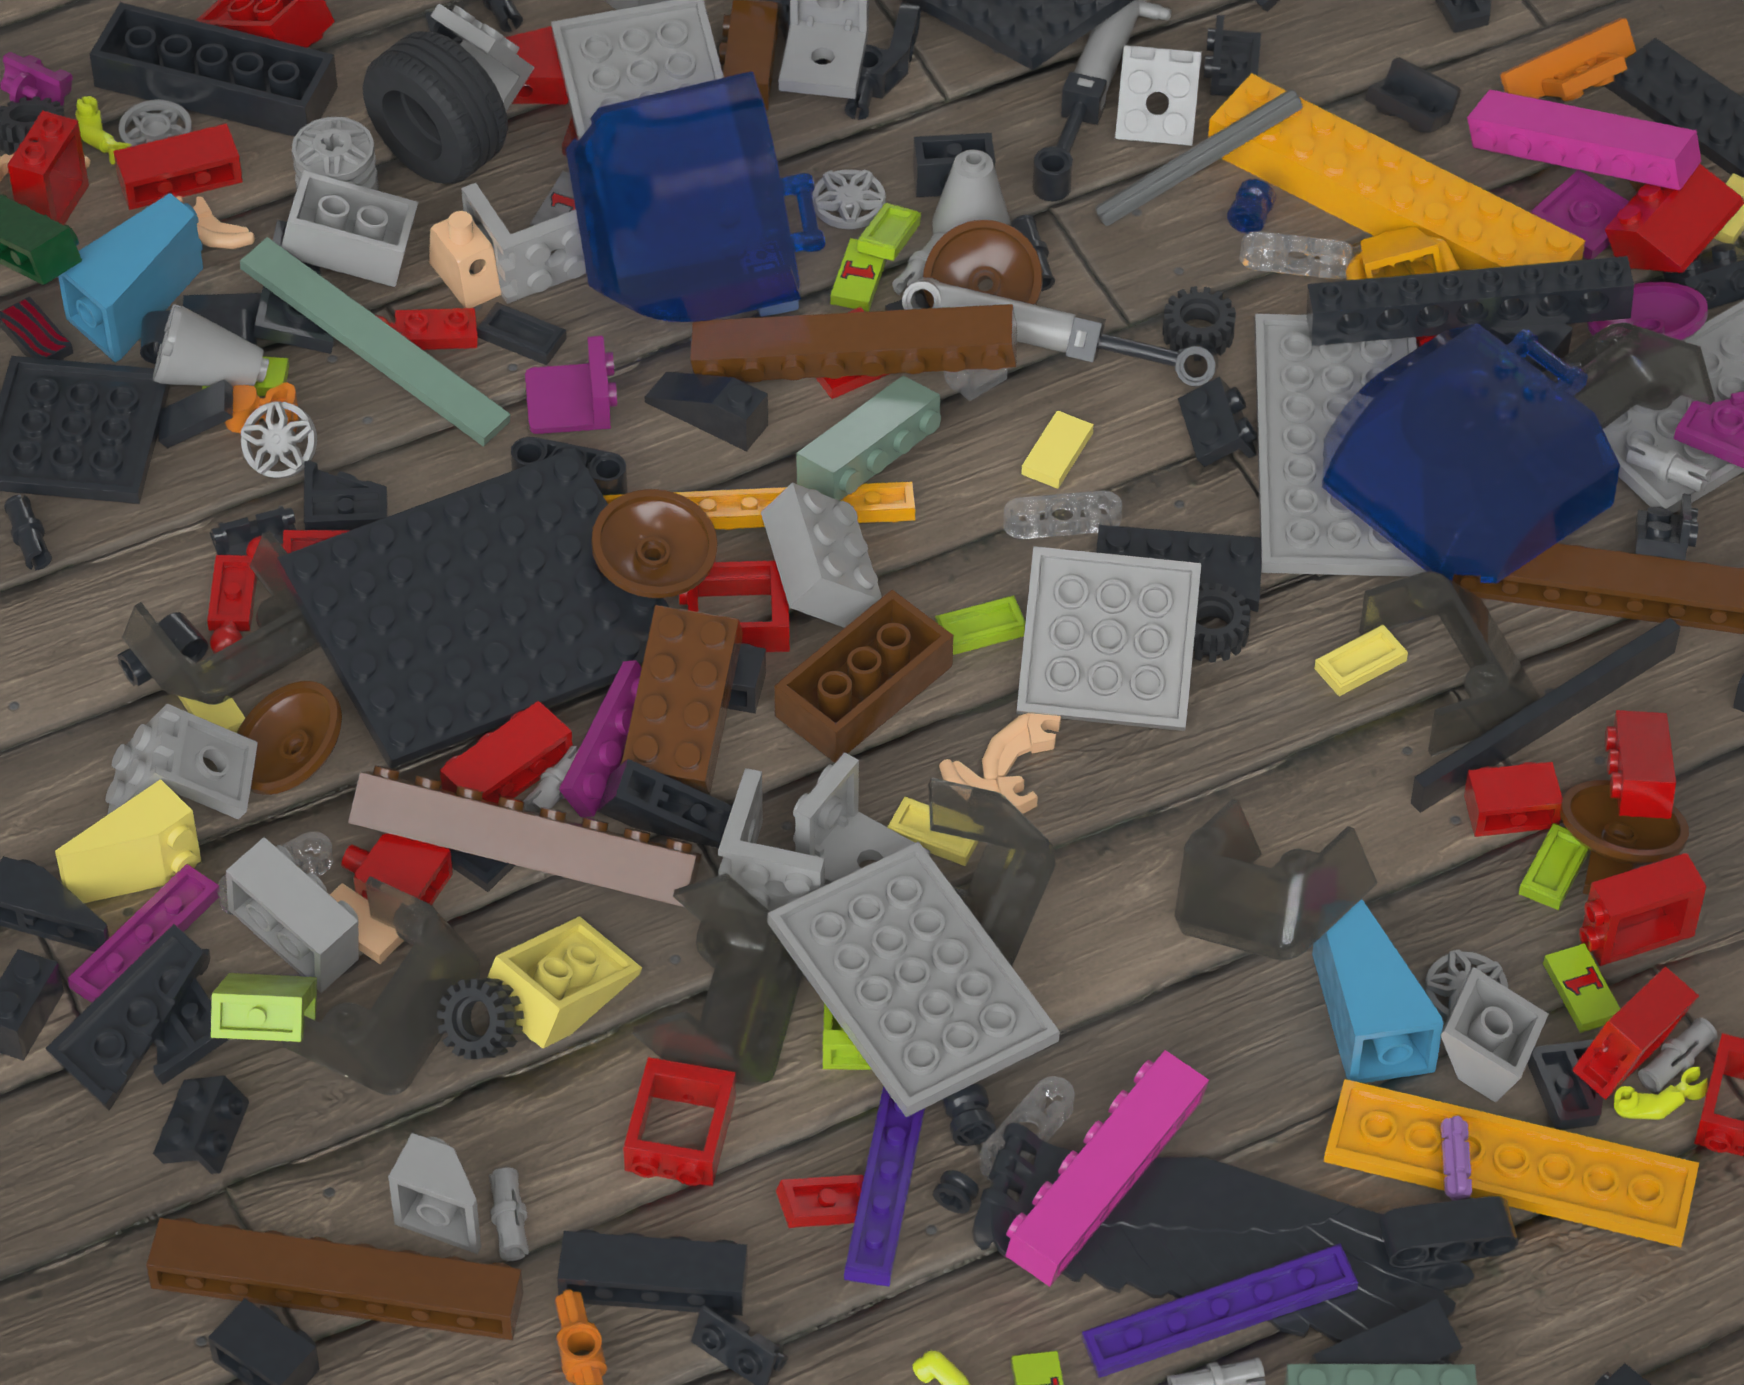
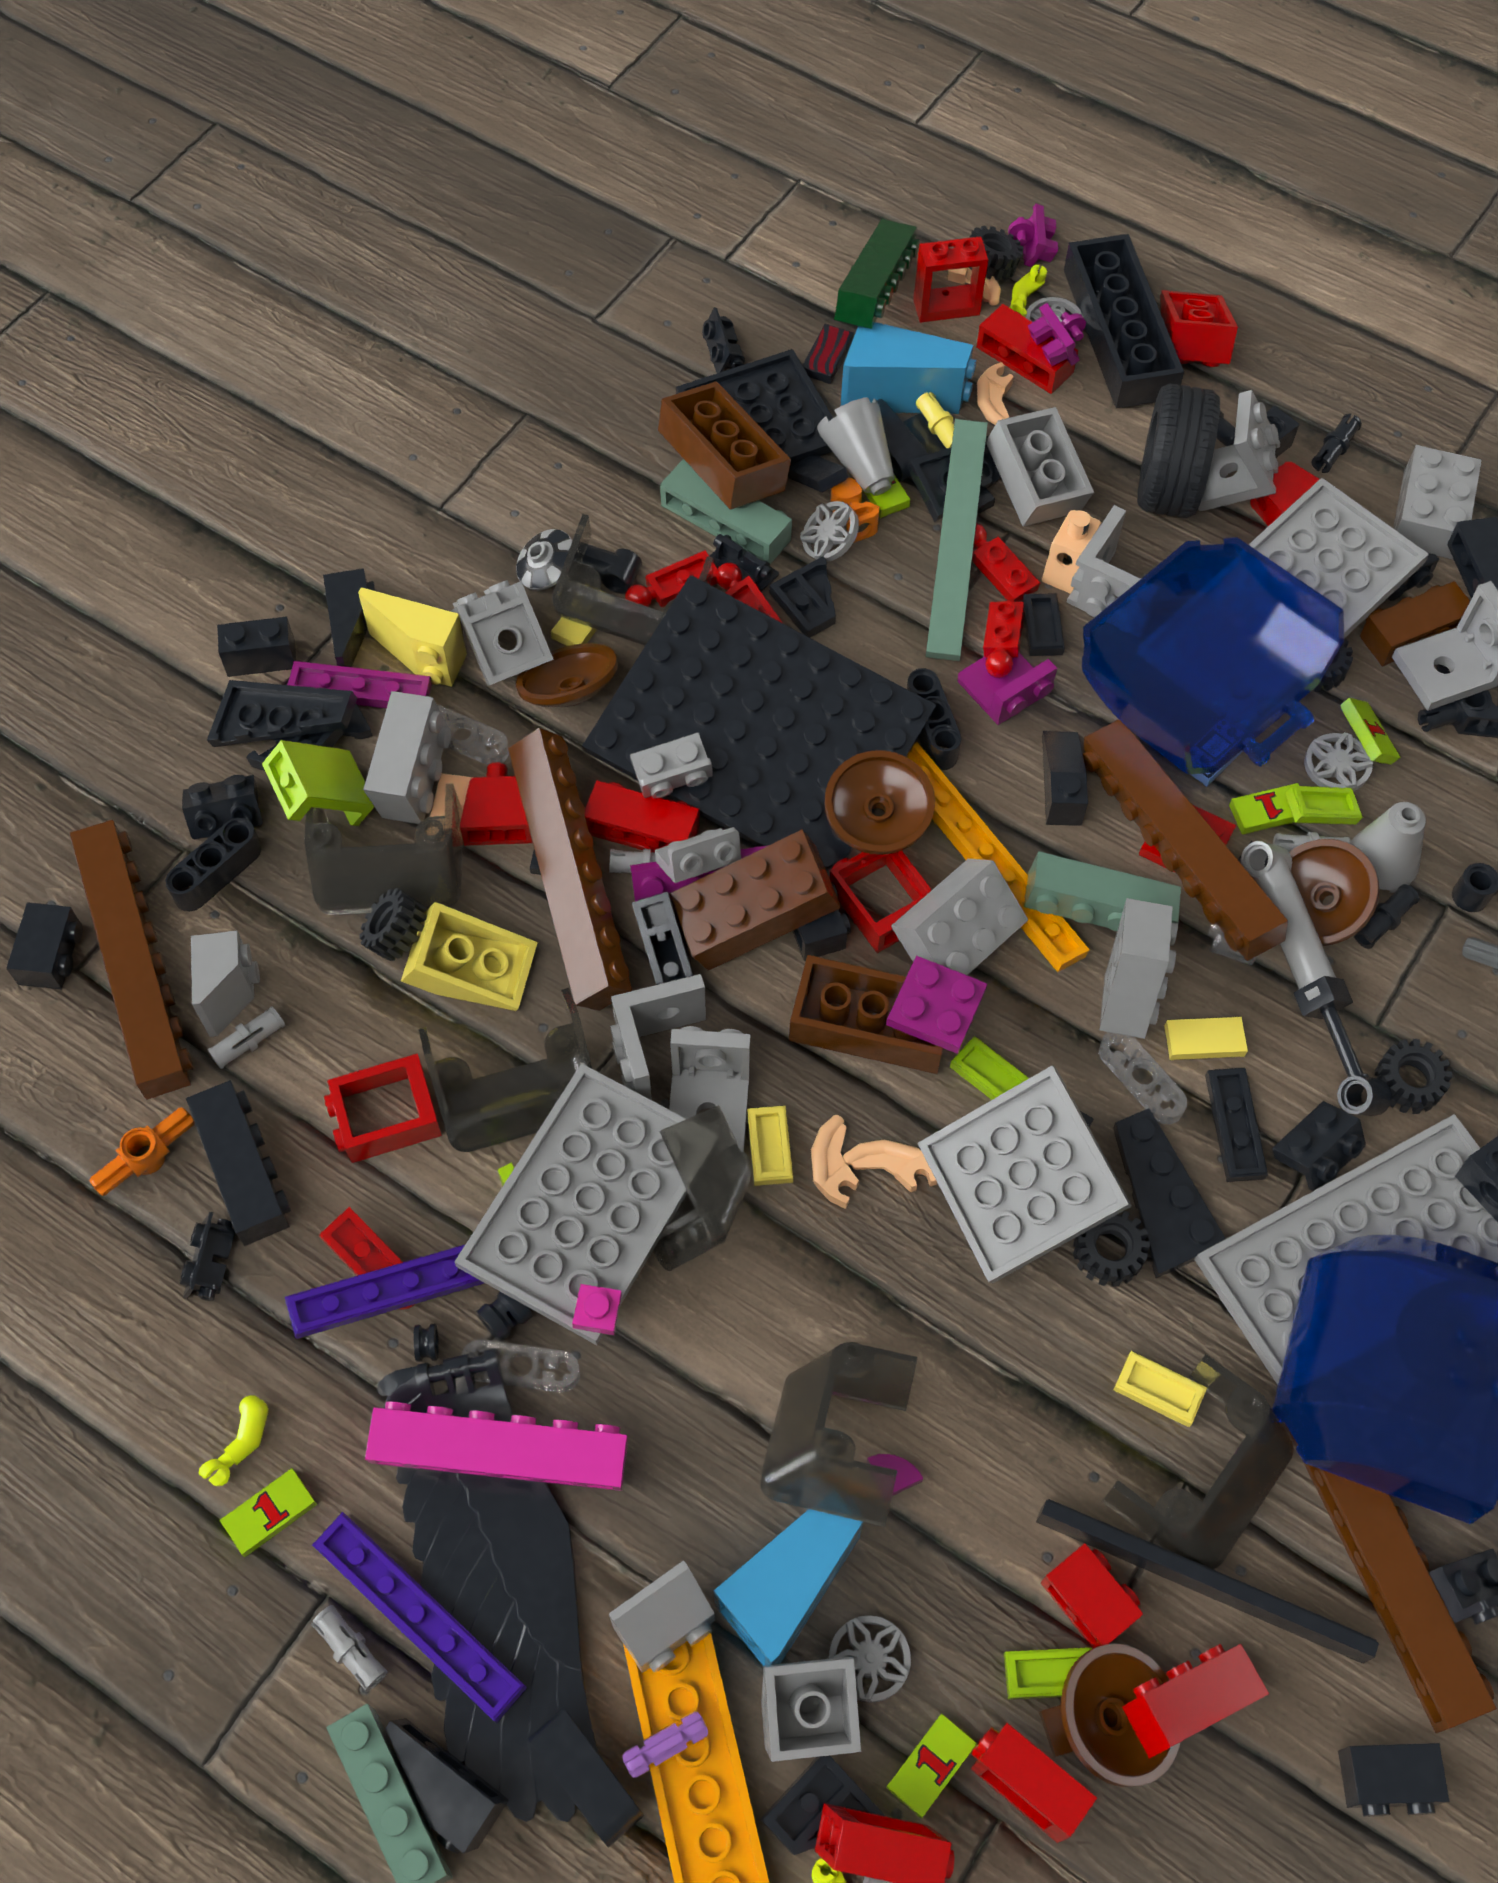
camera: 60 degrees right, 10 degrees up
(27, 532) = (647, 446): black pin -> none
(116, 461) = (723, 445): none -> reddish brown brick
(128, 707) = (543, 559): none -> dish
(175, 515) = (751, 526): none -> sand green brick
(204, 119) = (1062, 333): none -> magenta hips
(217, 281) = (939, 421): none -> light yellow pin
(281, 1174) = (207, 880): none -> black beam
(336, 150) = (1096, 427): light grey wheel -> none
(480, 690) = (671, 766): none -> light grey bracket
(517, 367) = (1003, 636): none -> red plate
(597, 719) = (699, 854): none -> light grey bracket
(836, 156) = (1369, 731): none -> lime tile
(902, 609) = (936, 1004): none -> magenta plate
(936, 154) = (1442, 817): black brick -> none
(973, 443) = (1138, 968): none -> light grey brick
(1032, 1011) = (597, 1309): none -> dark pink plate
(1155, 474) = (1236, 1125): none -> black tile
(1350, 1099) = (663, 1618): none -> light grey slope

